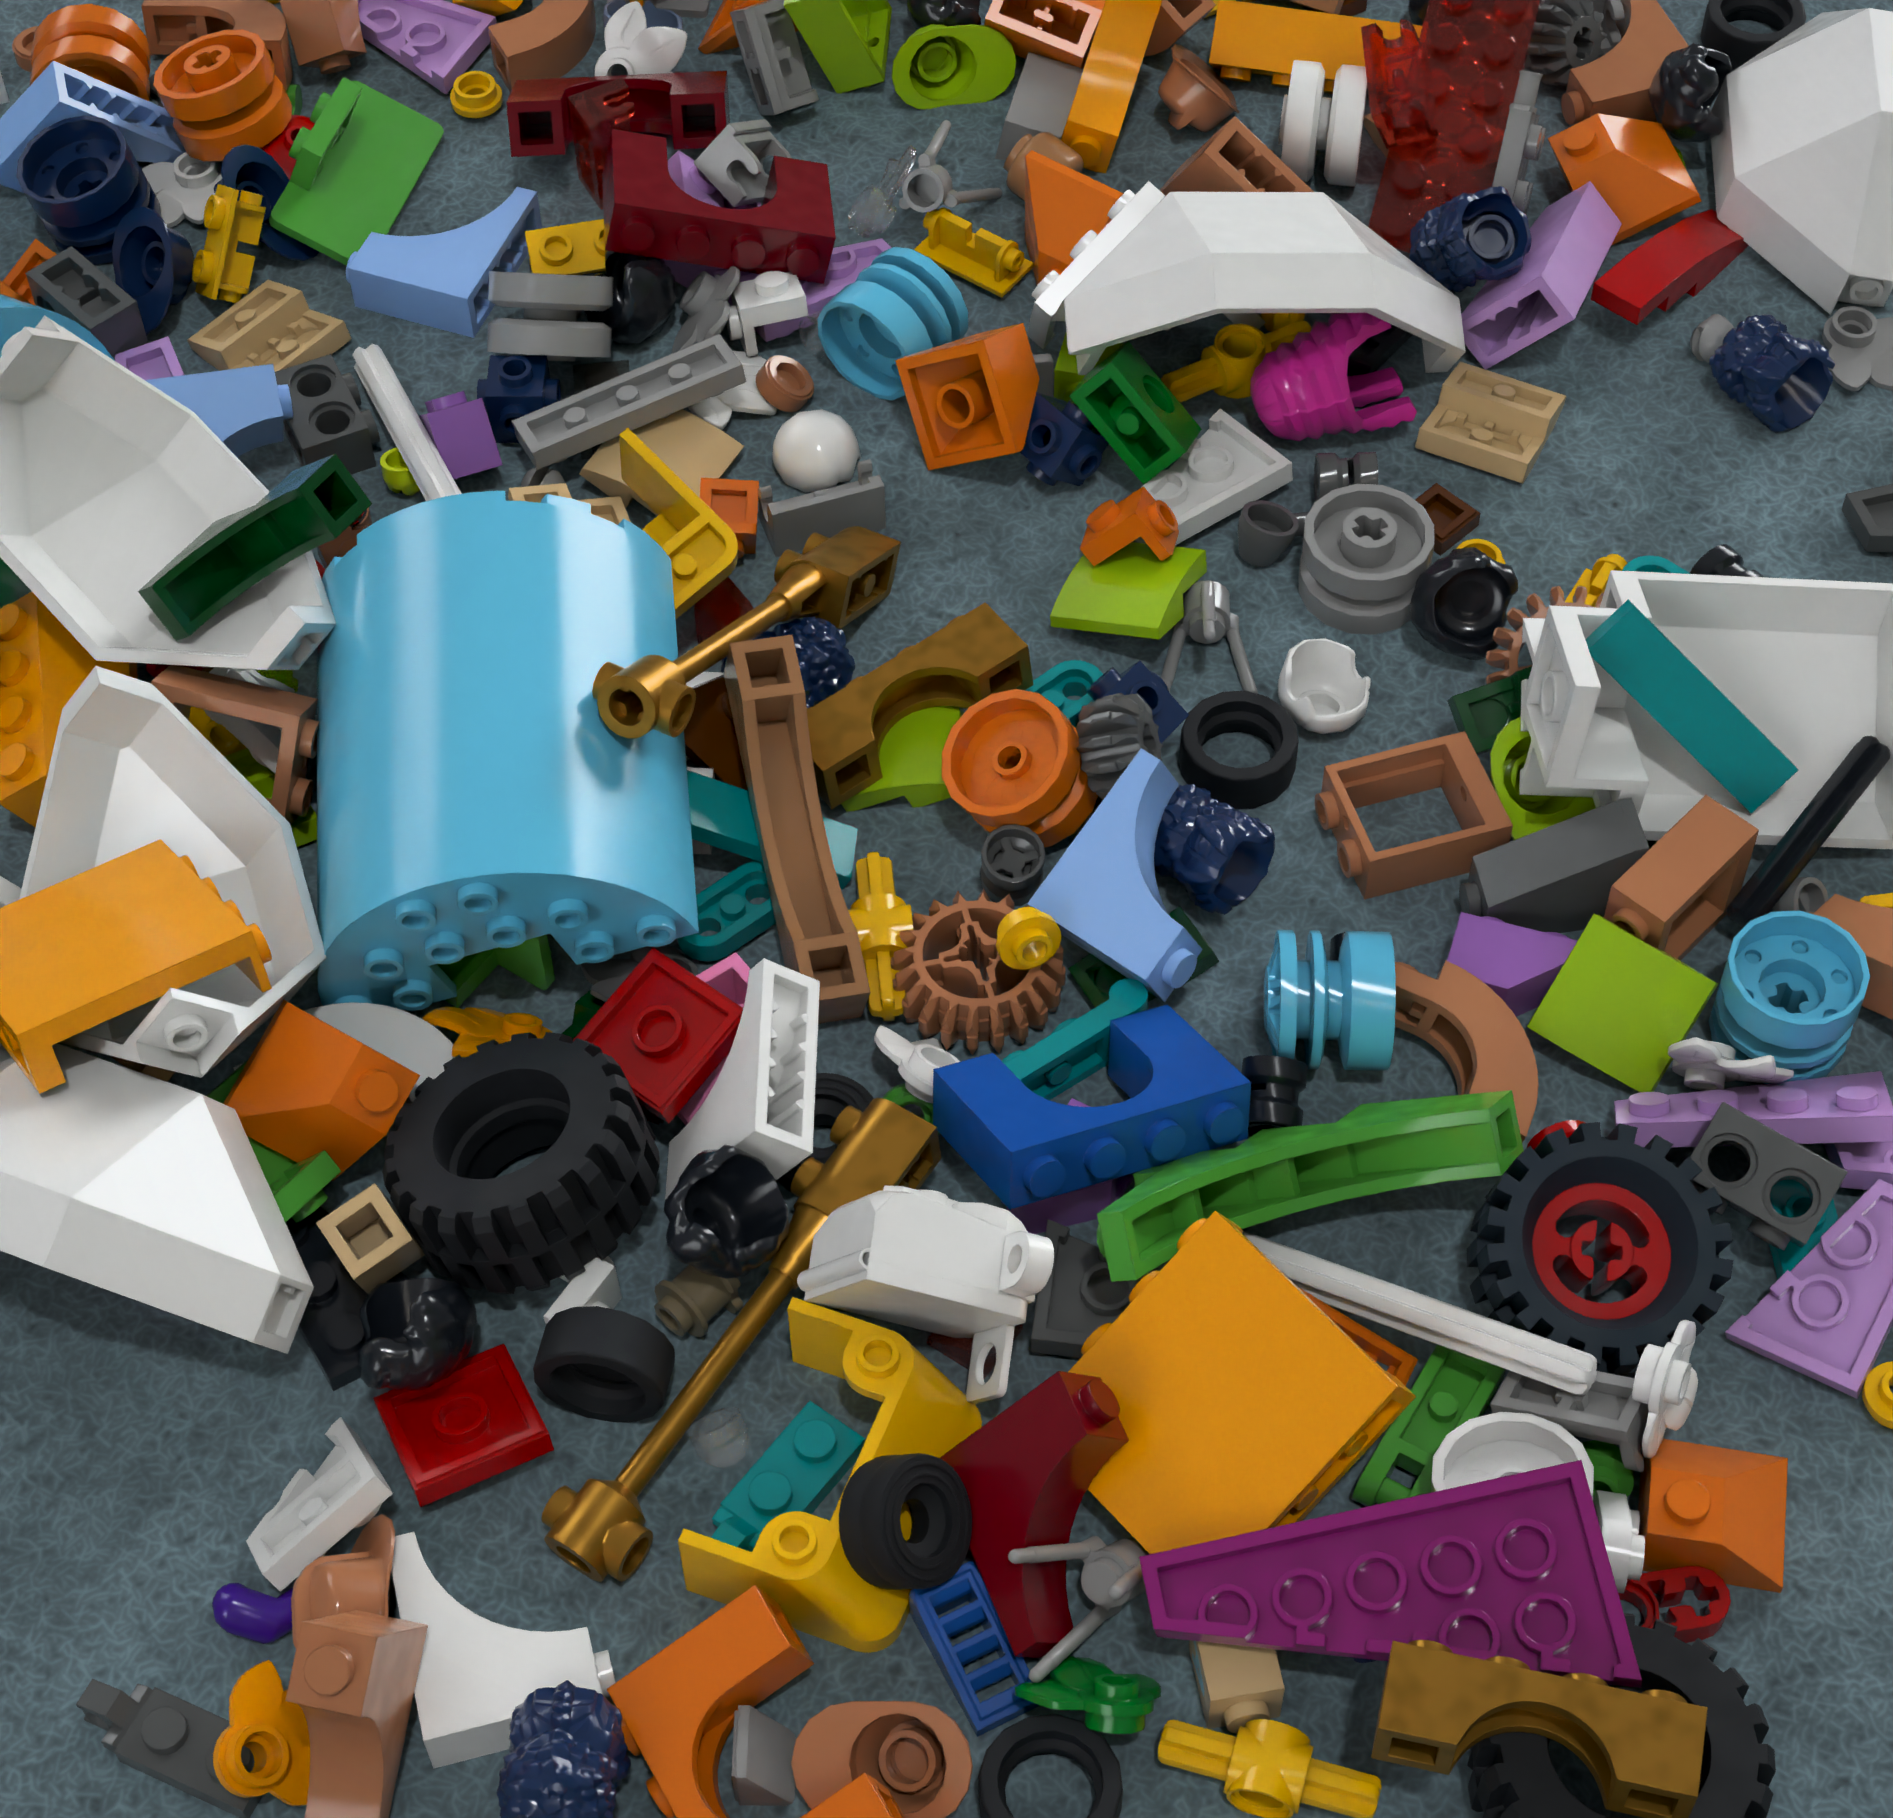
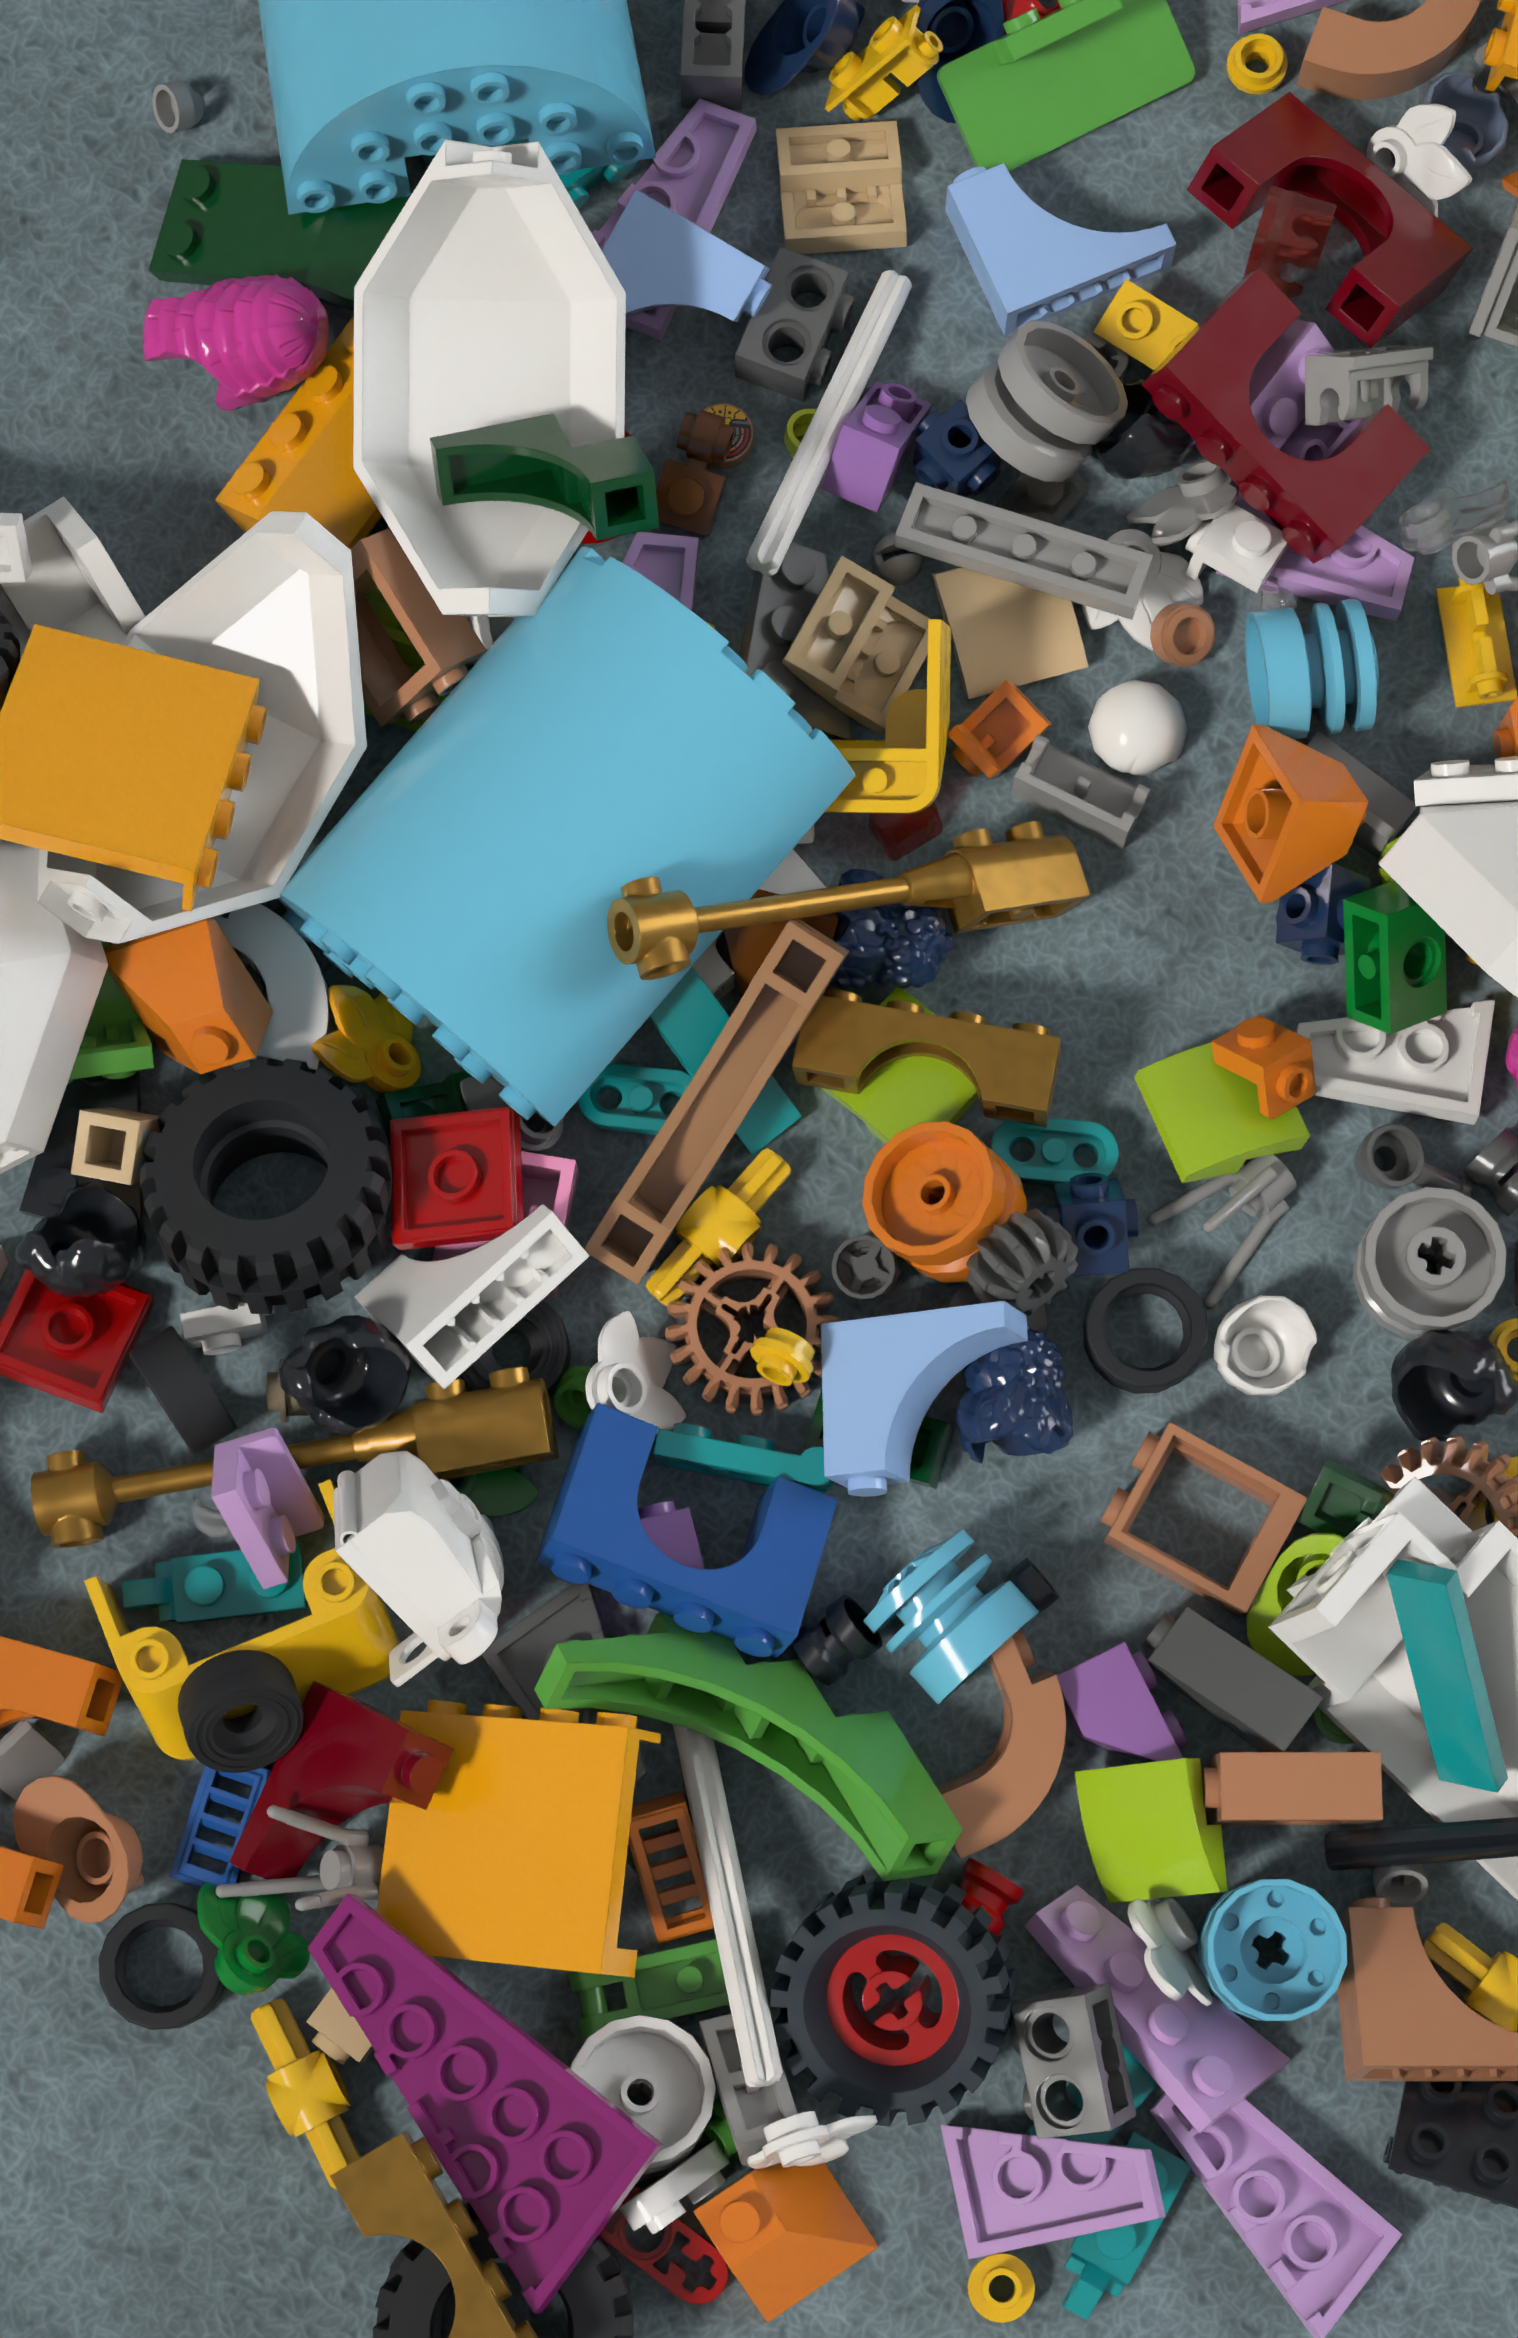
camera: 45 degrees right, 25 degrees up
(756, 1364) = (263, 1501): none -> lavender bracket

